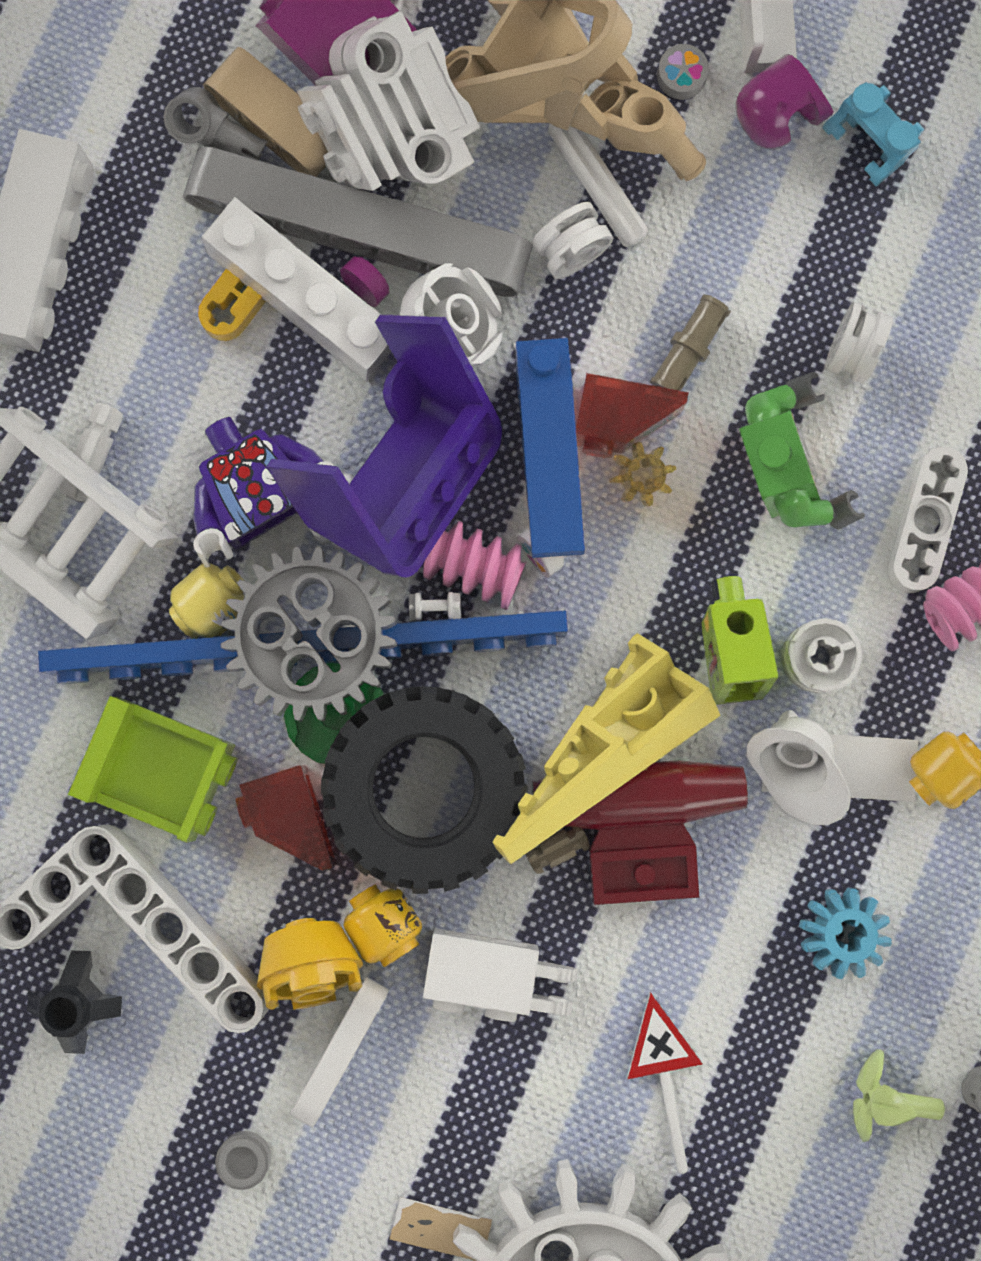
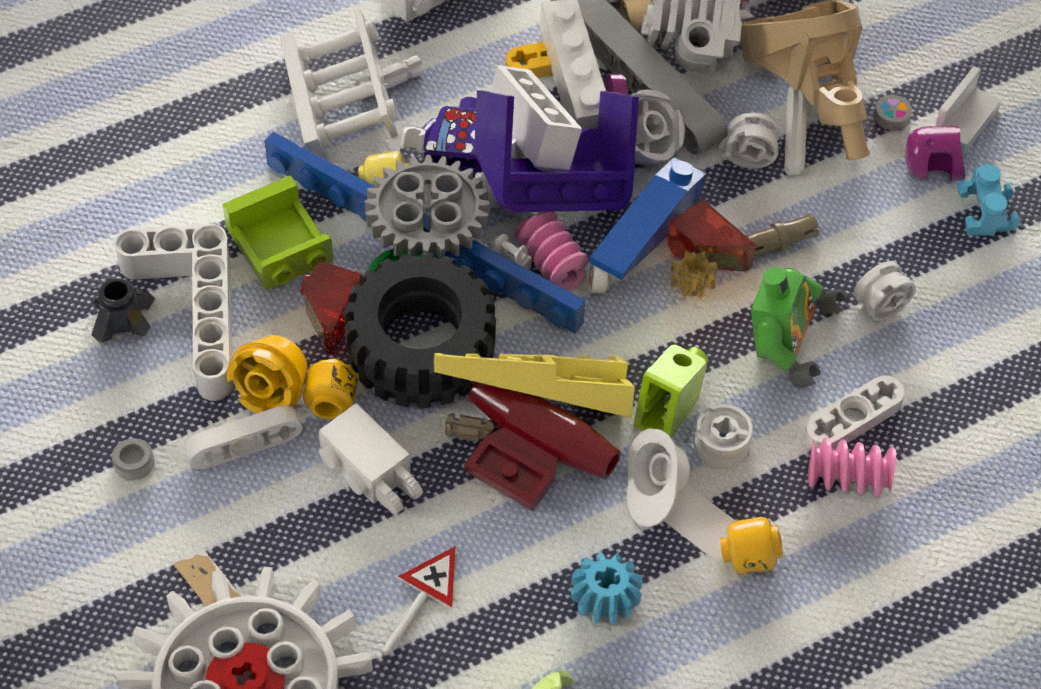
camera: 40 degrees right, 30 degrees down
(324, 413) = (539, 121): none -> white brick

